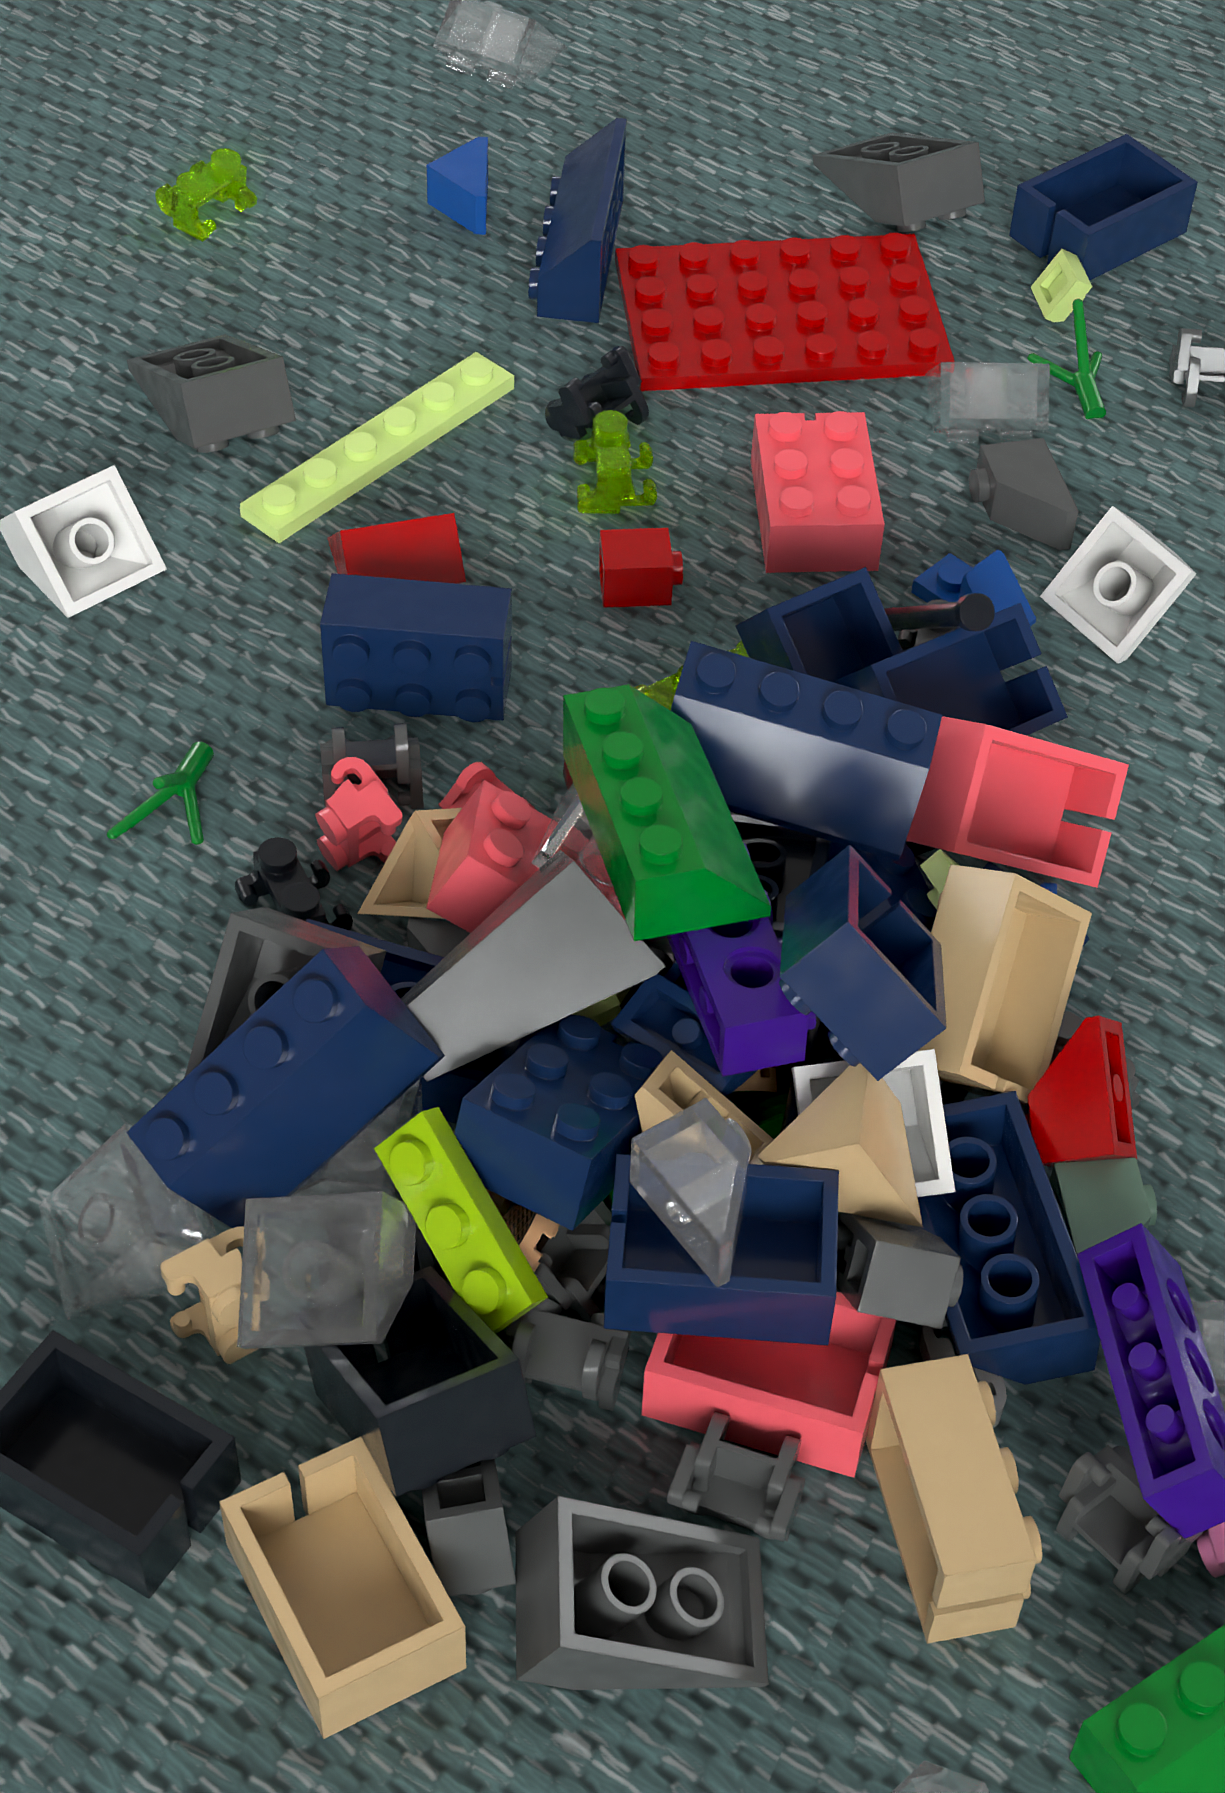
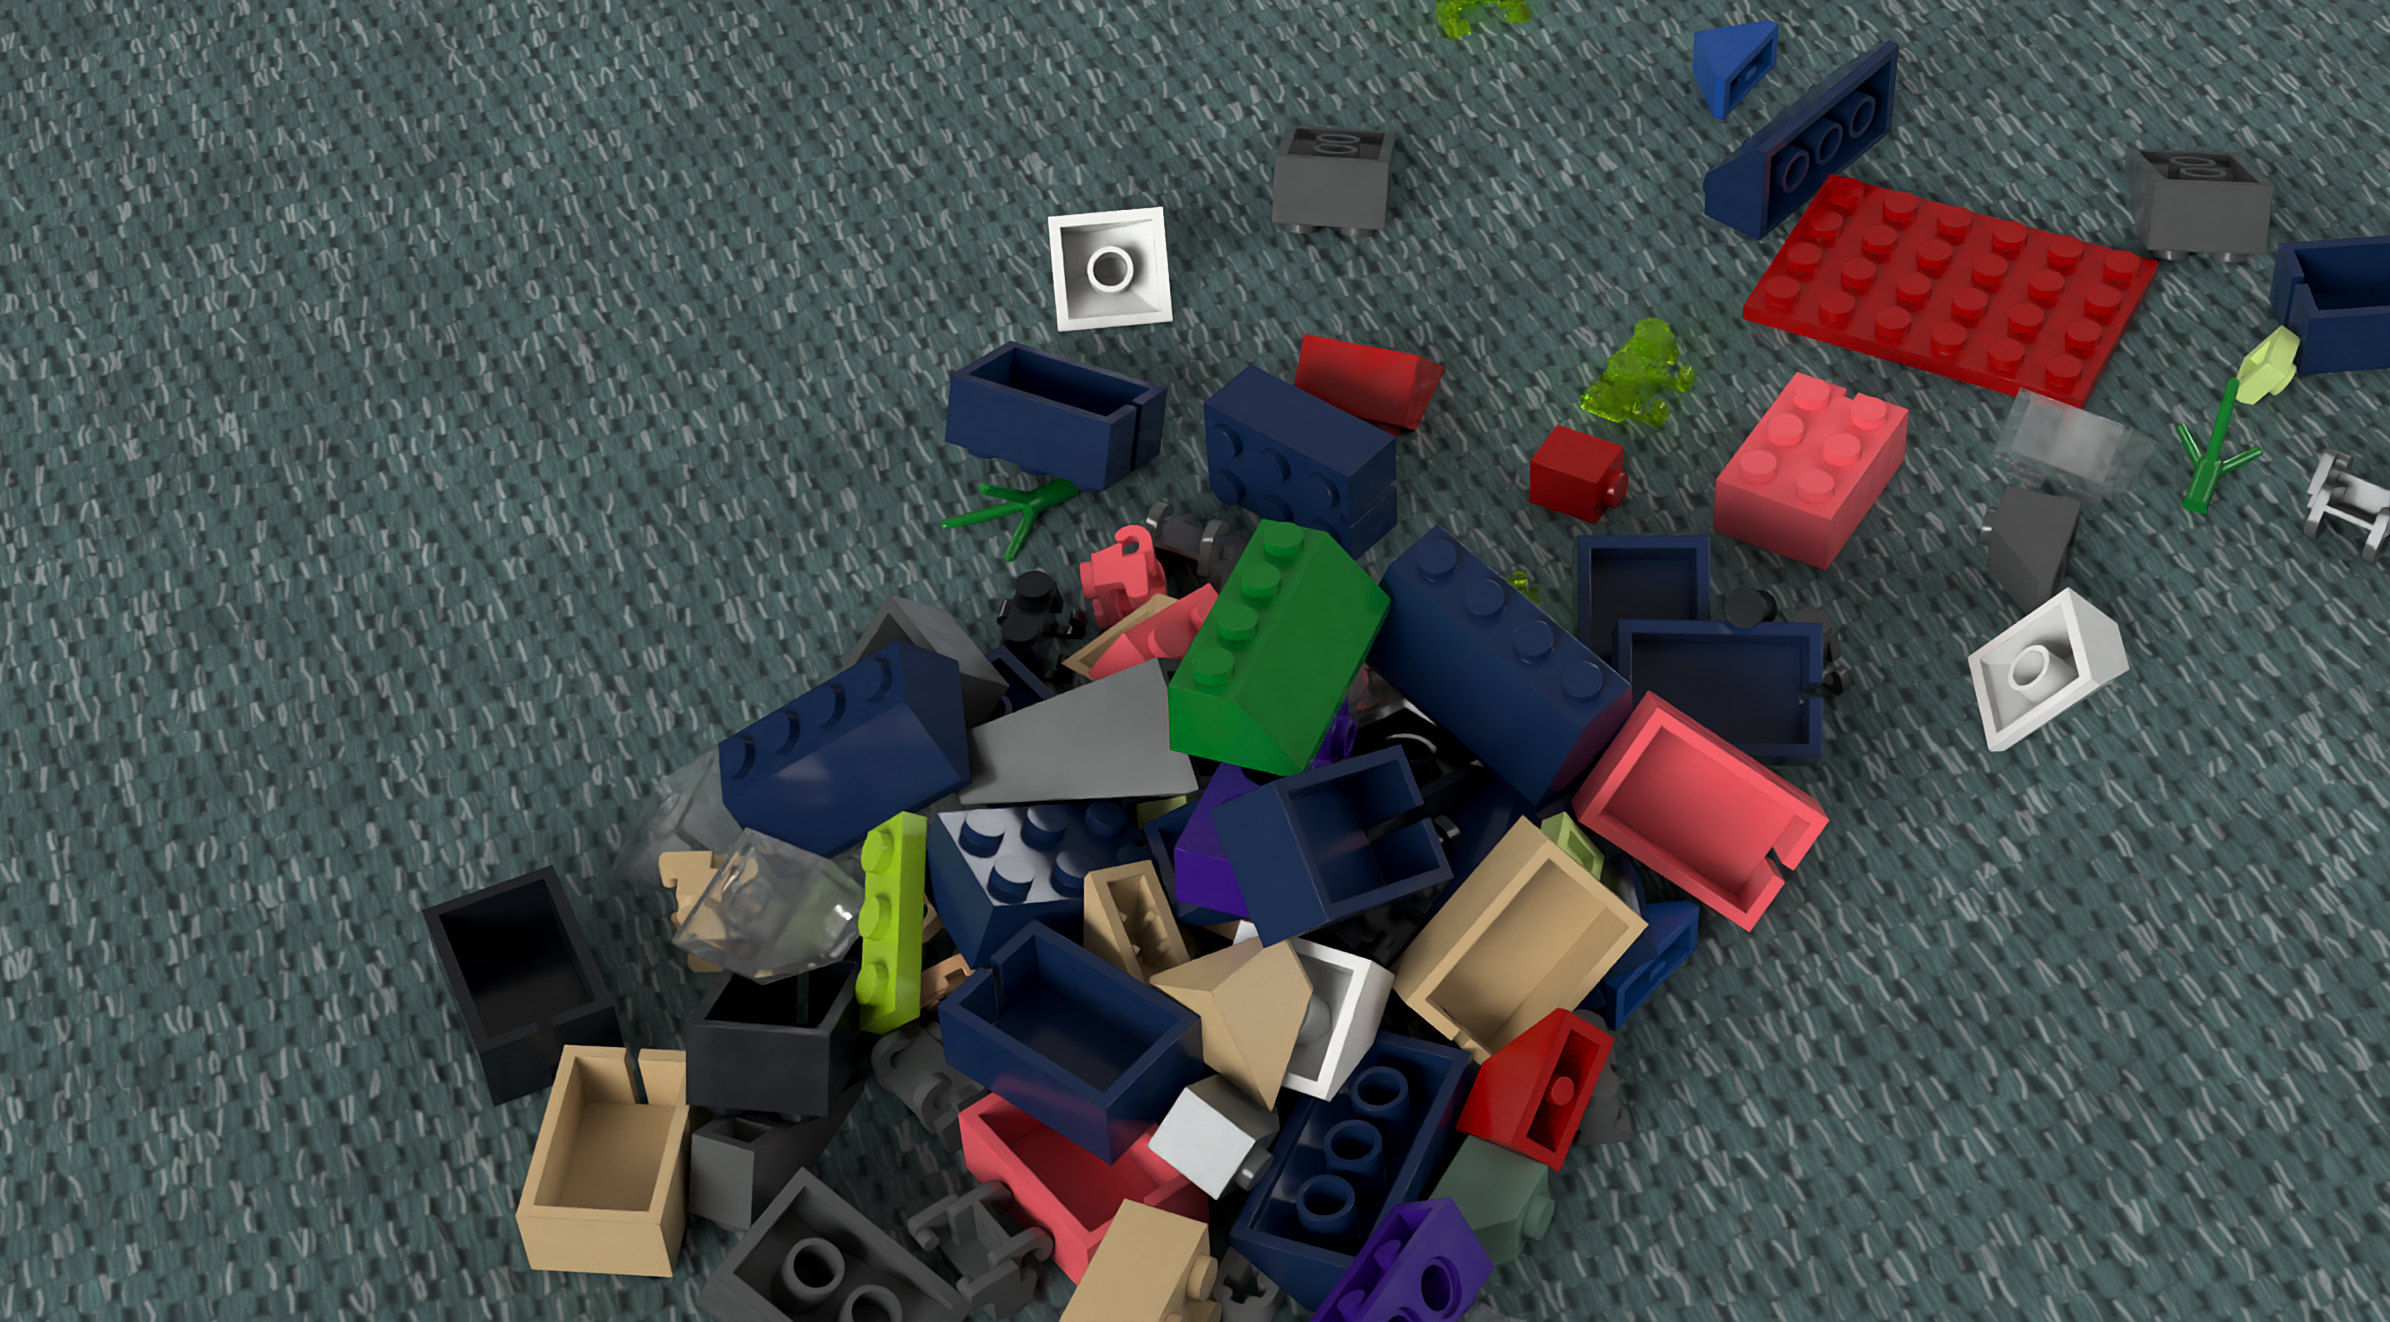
camera: 40 degrees right, 5 degrees down
(160, 692) = (1055, 416): none -> dark blue piece
(376, 447) = (1448, 279): yellowish green plate -> none
(606, 389) = (1683, 304): black piece -> none
(696, 1182) = (1059, 963): clear slope -> none
(953, 579) = (1894, 632): blue slope -> none

